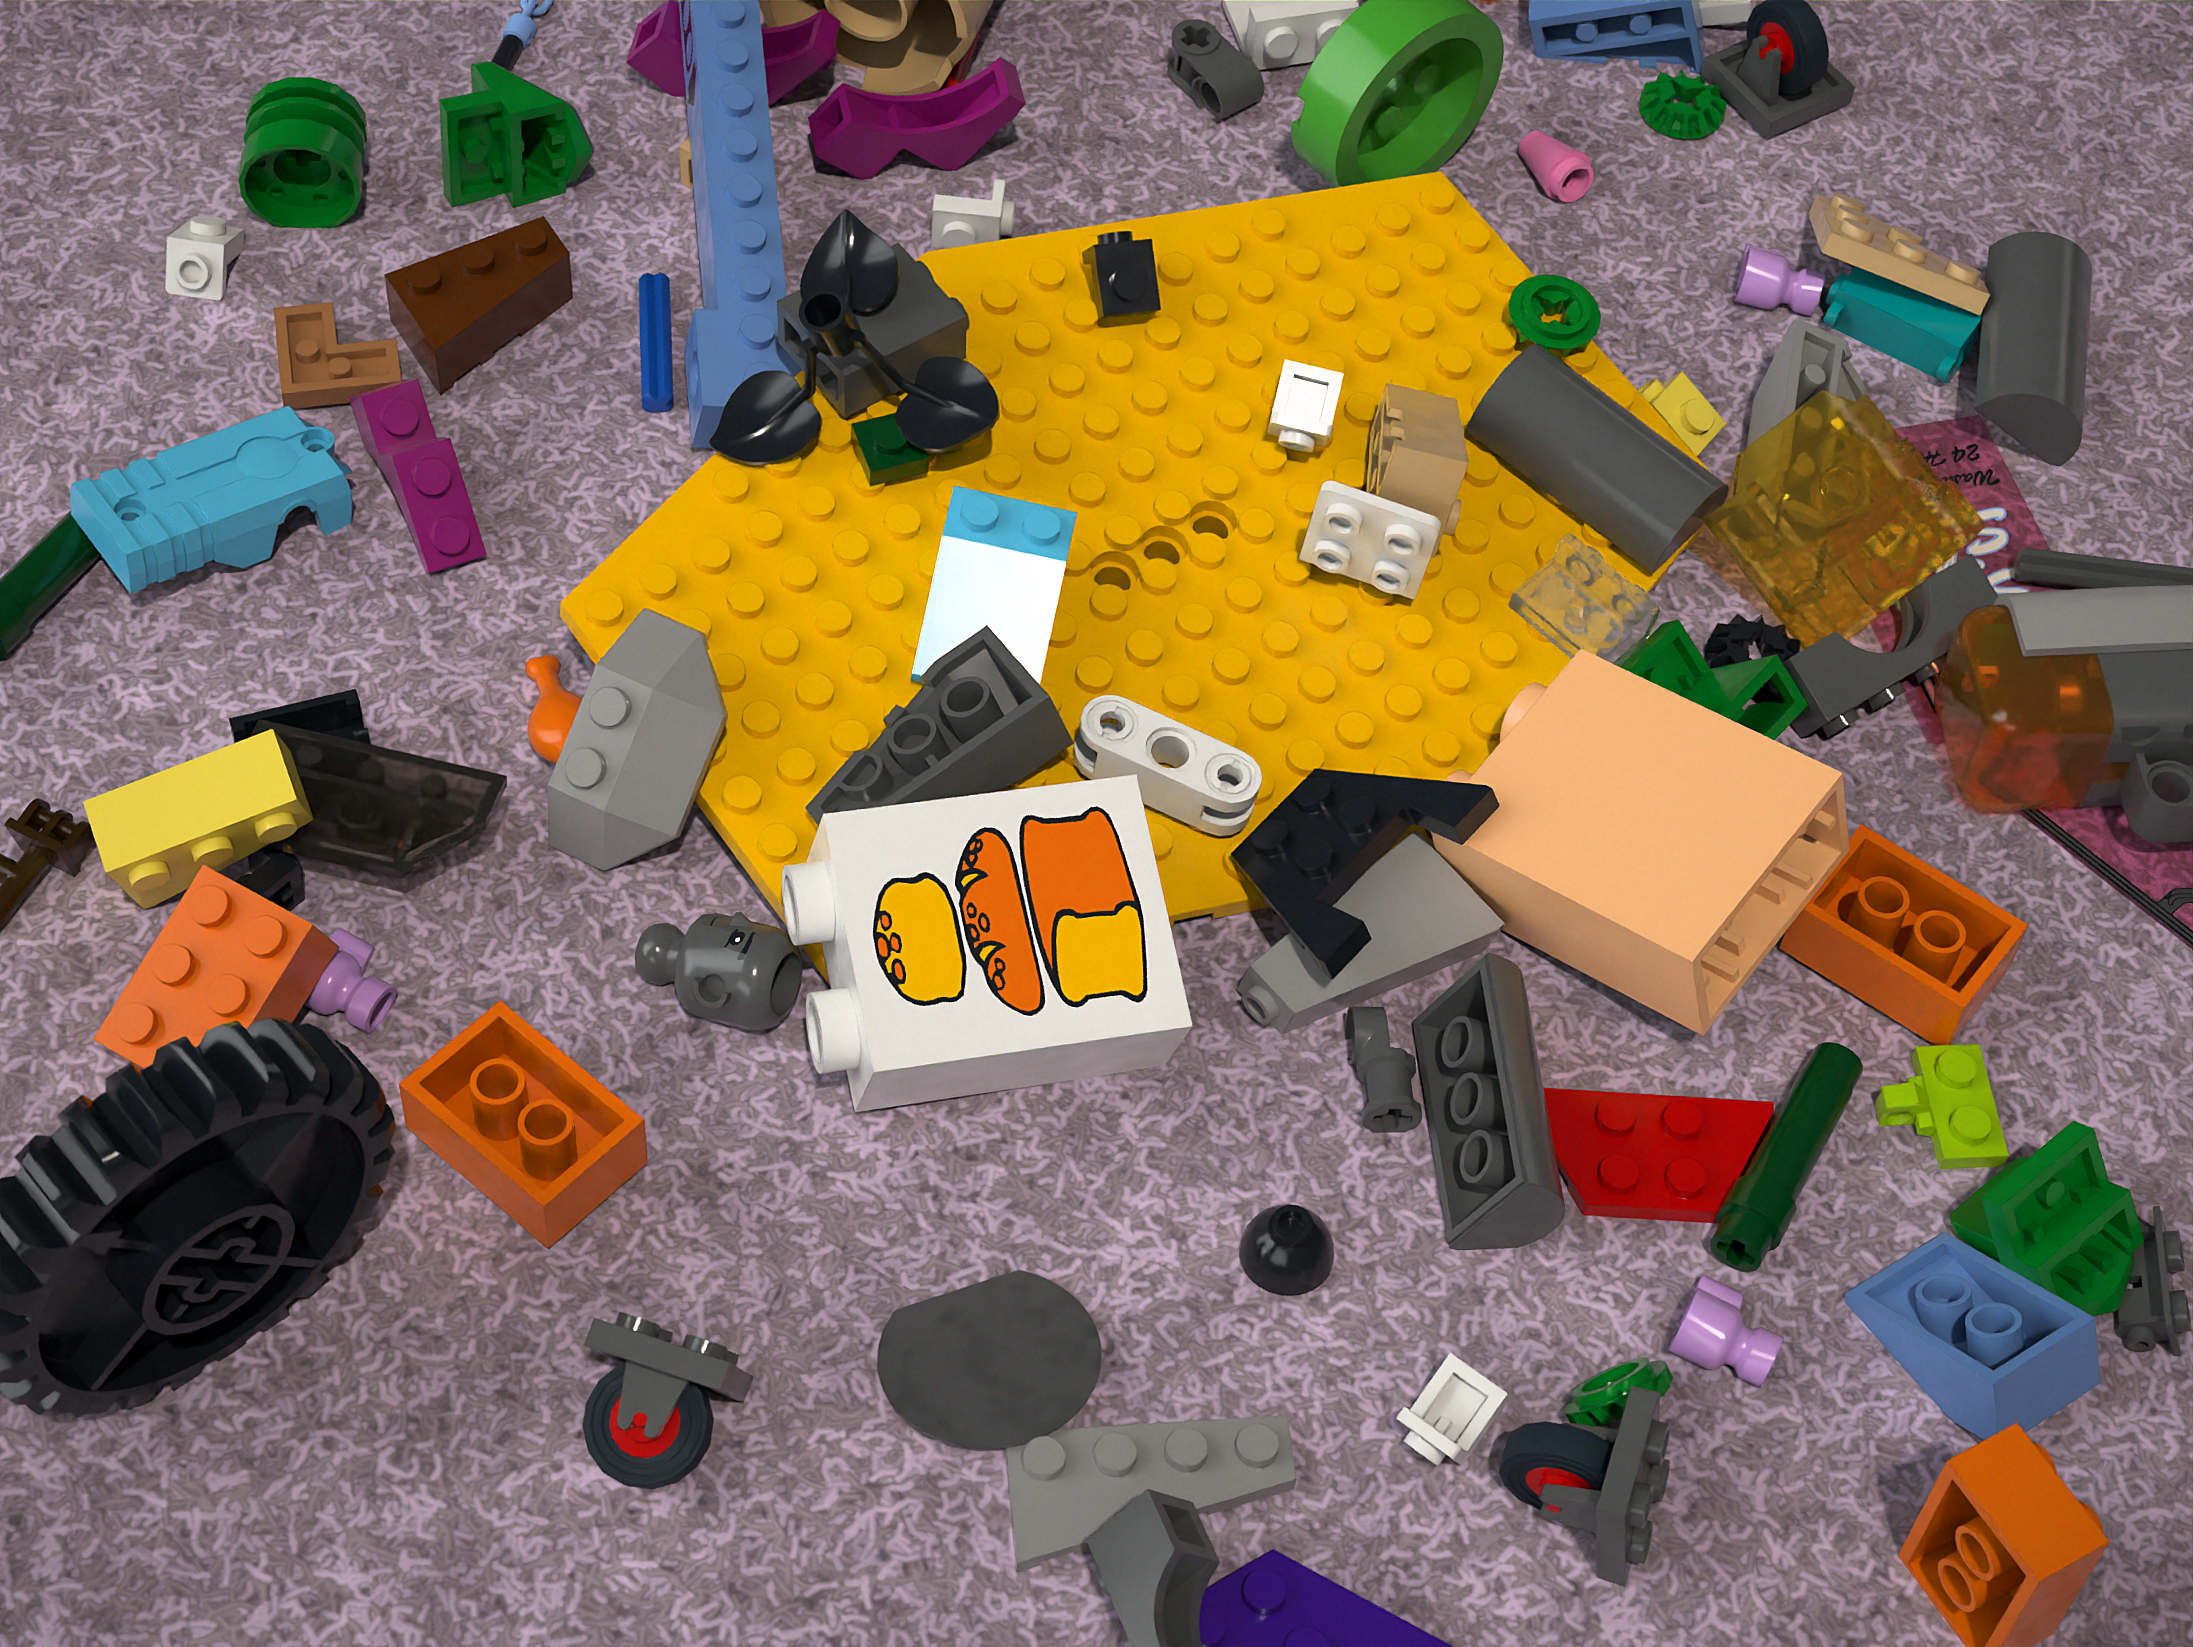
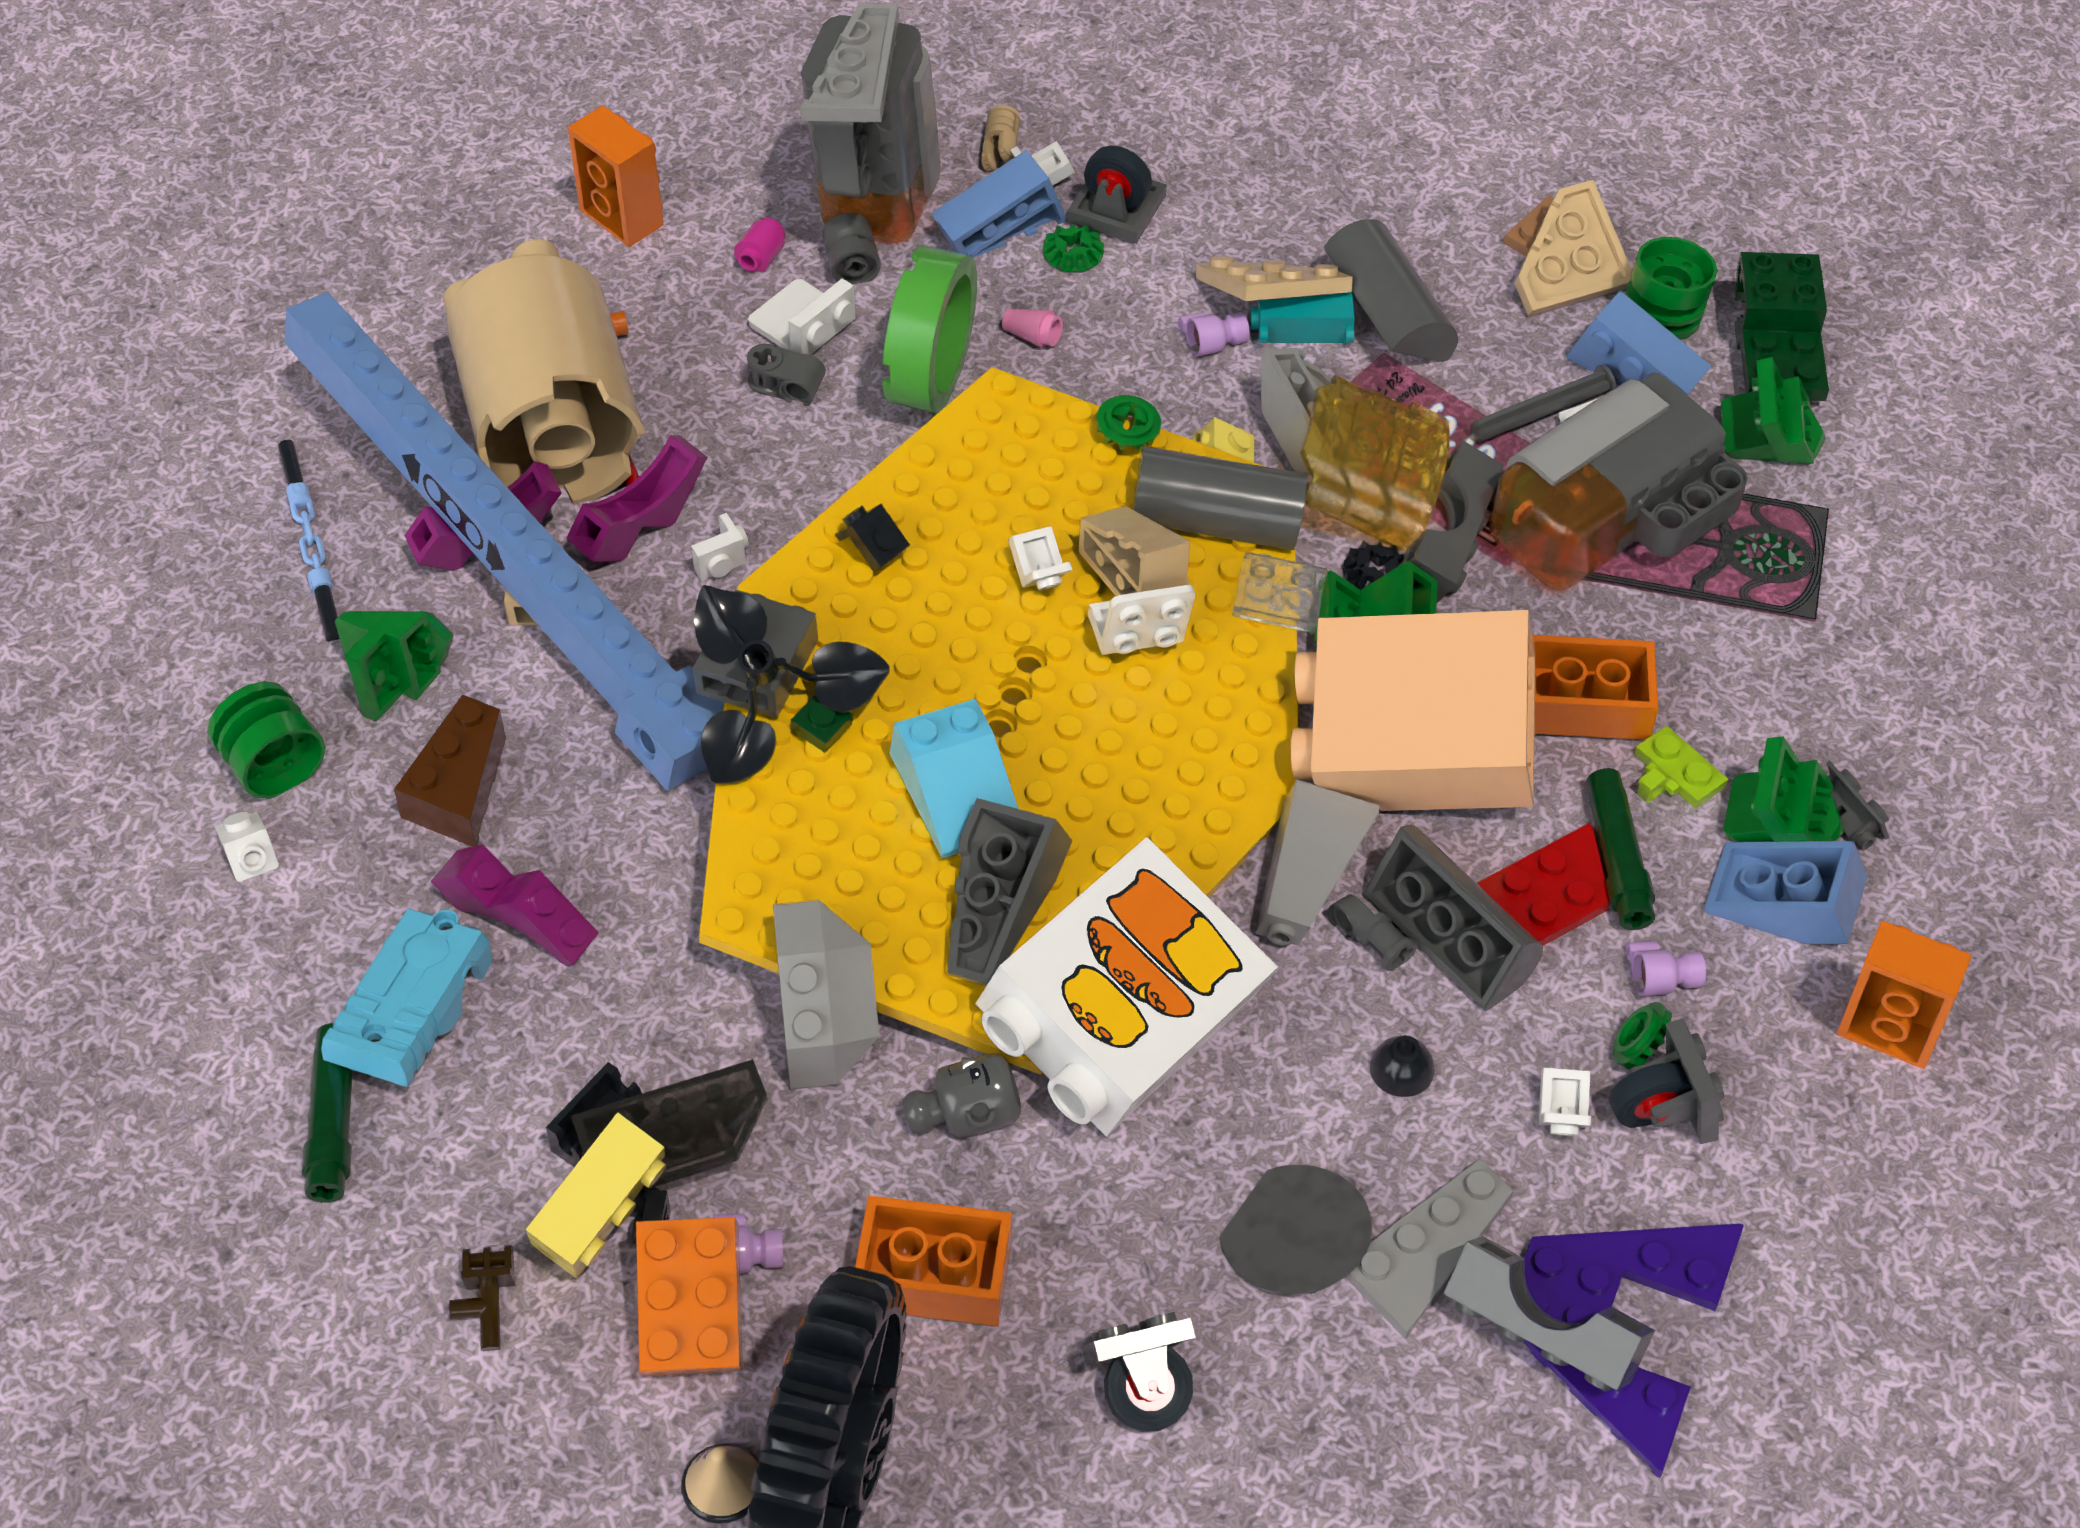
camera: 30 degrees left, 0 degrees up
(319, 369) = (386, 875): medium nougat plate -> none
(554, 710) = (736, 1008): orange piece -> none
(655, 343) = (586, 737): blue axle -> none
(1211, 780) = (1160, 815): white piece -> none
(1332, 834) = (1254, 812): black wing -> none

